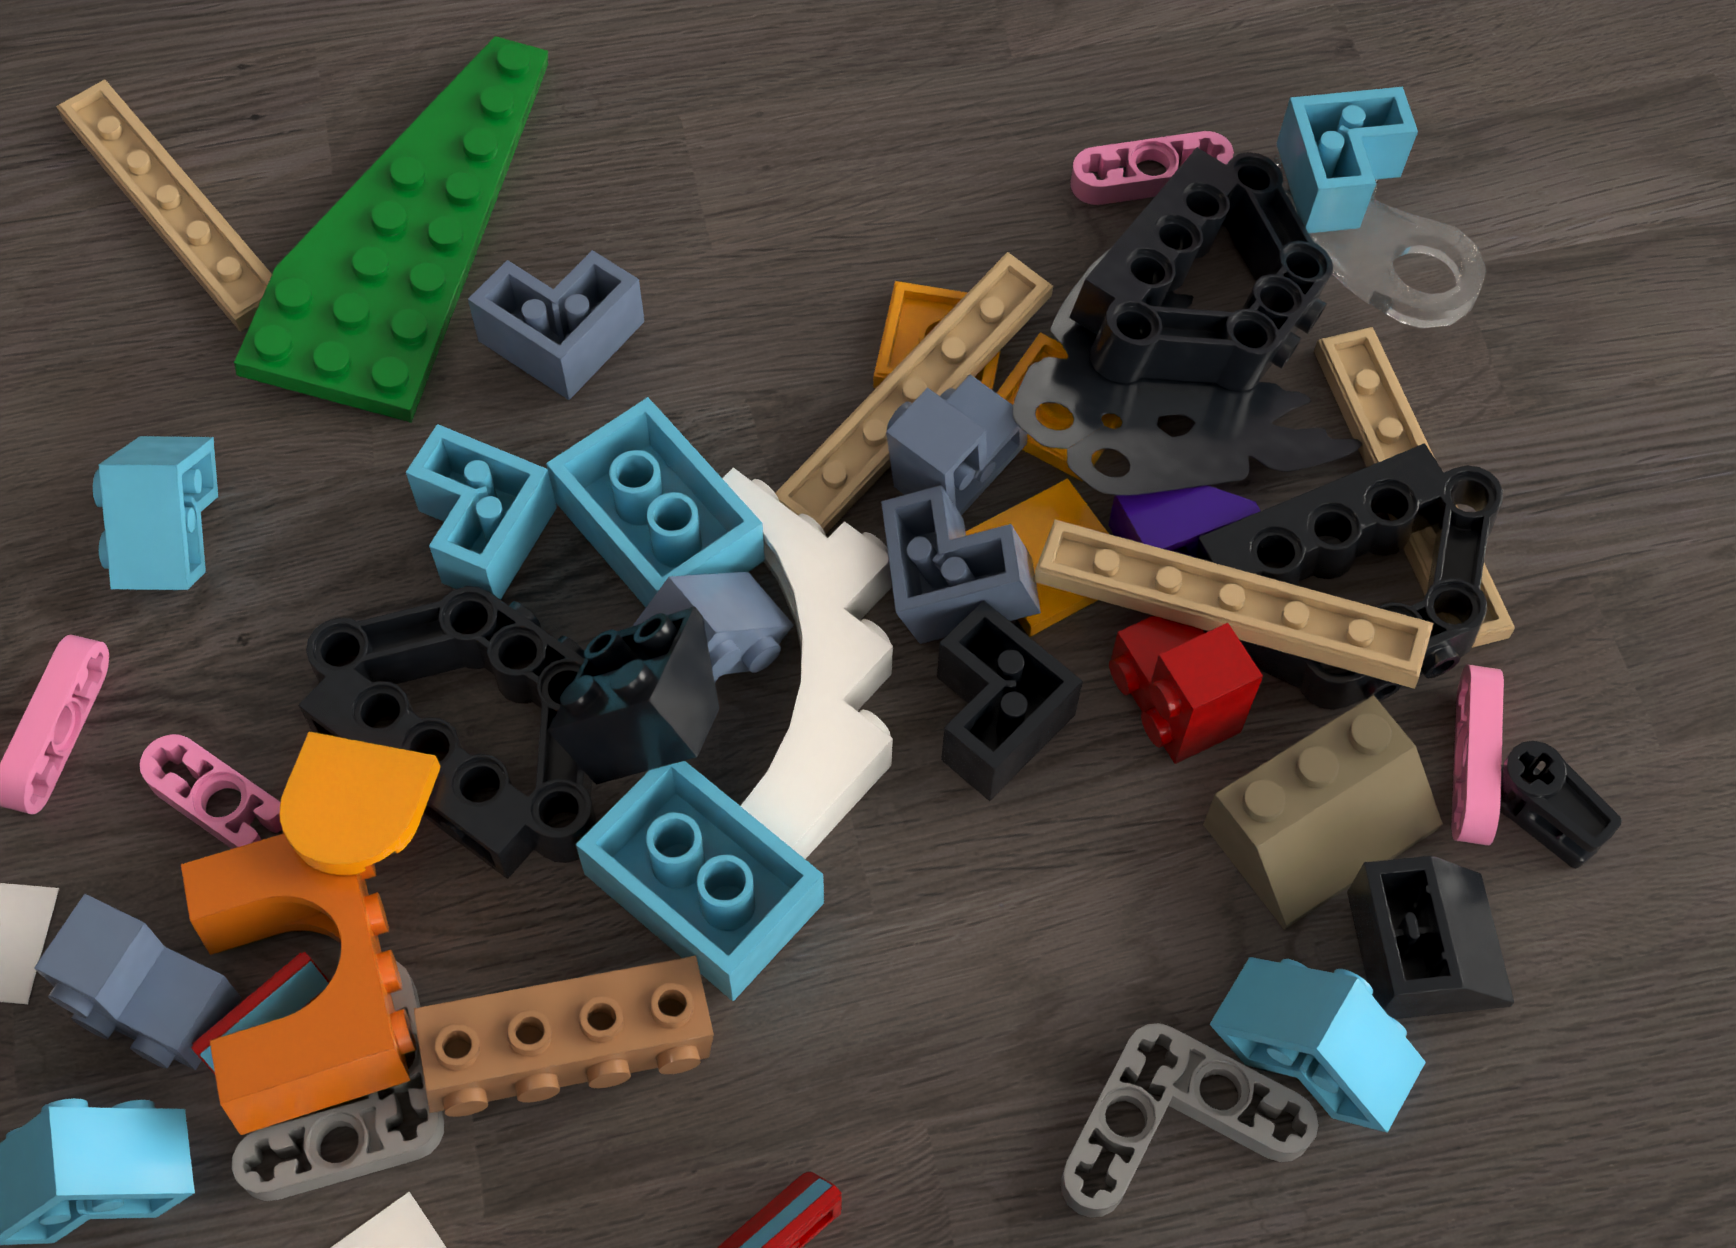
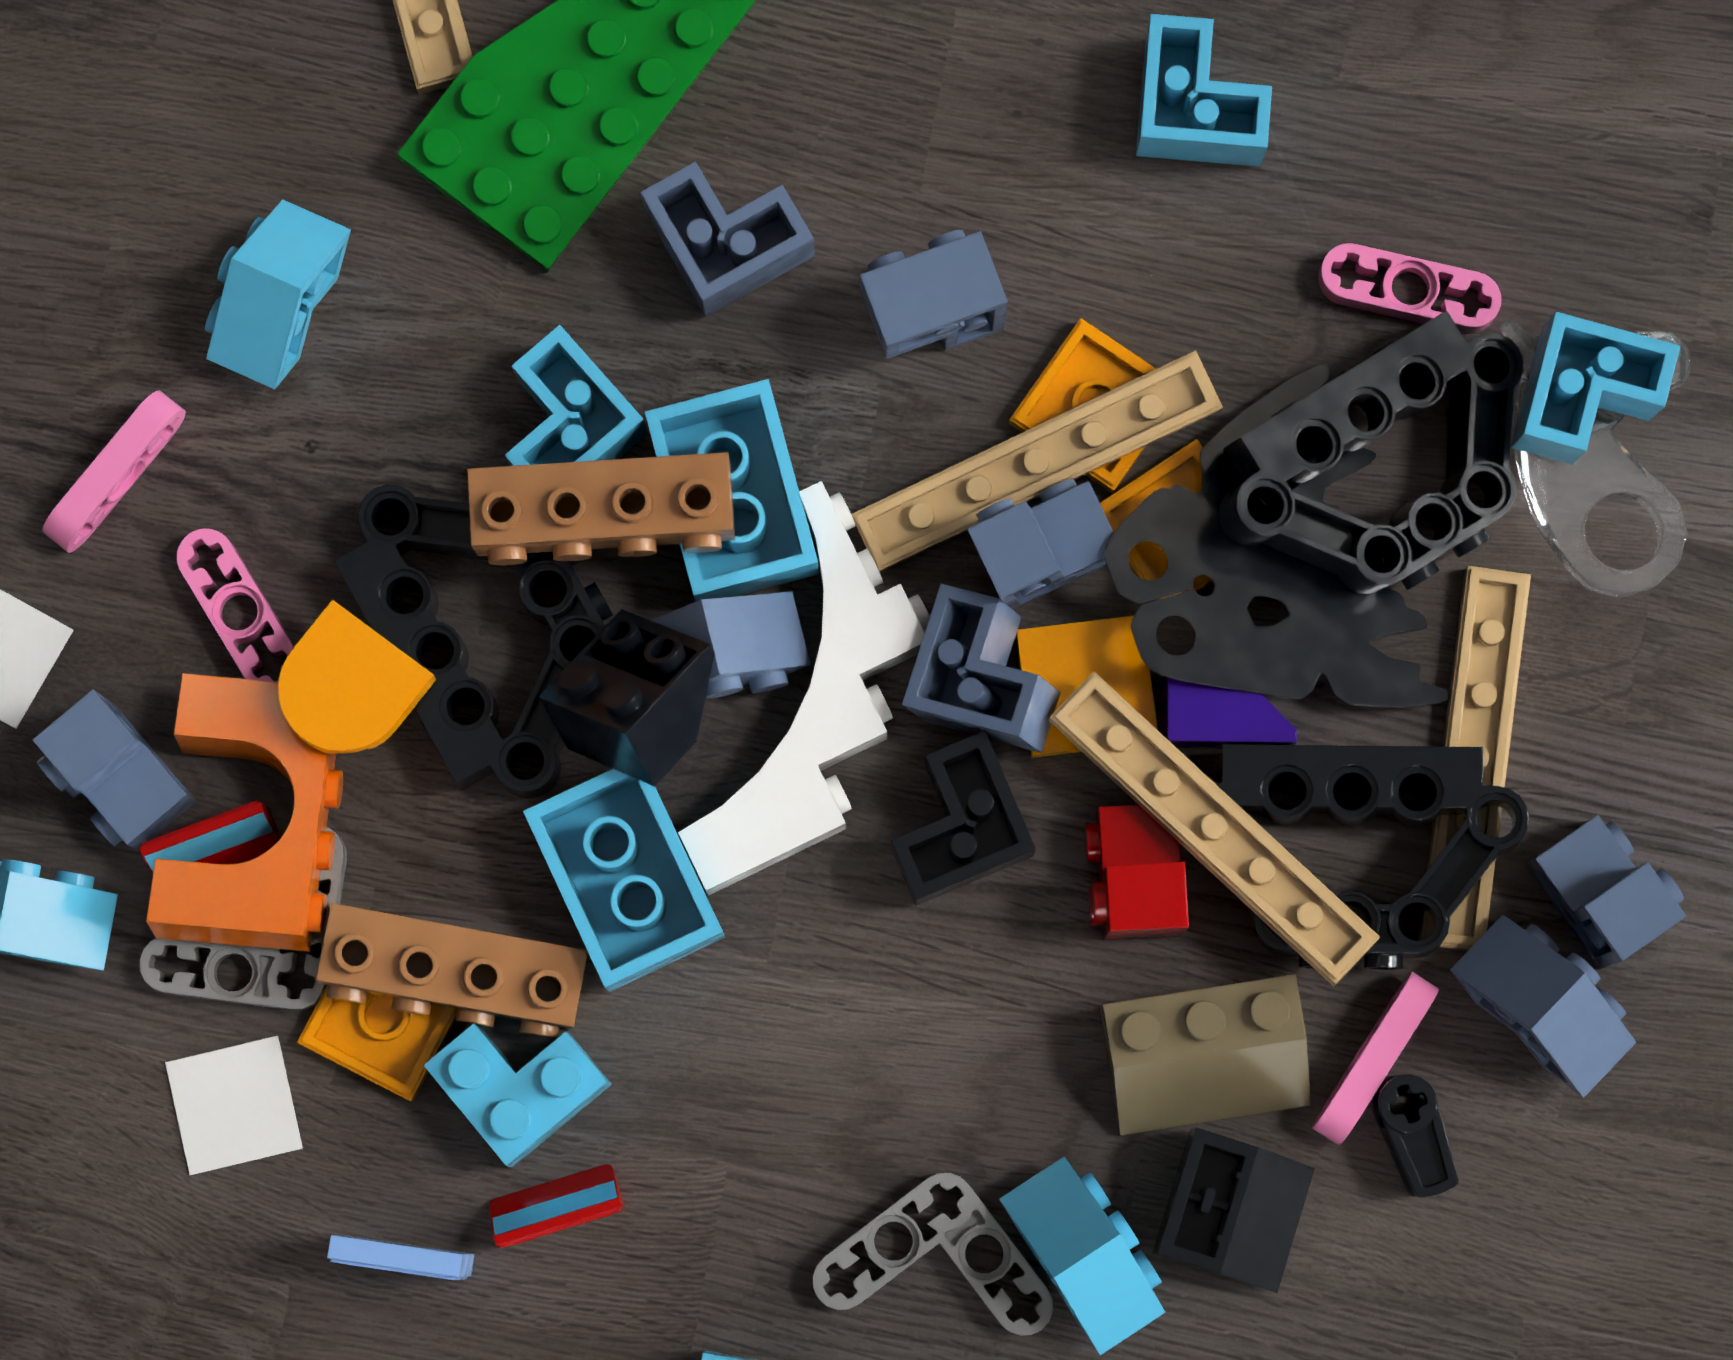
camera: 25 degrees right, 20 degrees up
(515, 1147) = (377, 1040): none -> light orange tile
(538, 540) = (601, 506): none -> medium nougat brick
(681, 1145) = (511, 1106): none -> medium azure brick
(769, 285) = (935, 295): none -> sand blue brick
(908, 97) = (1185, 111): none -> medium azure brick
(1592, 537) = (1604, 895): none -> sand blue brick
(1602, 629) = (1546, 1002): none -> sand blue brick

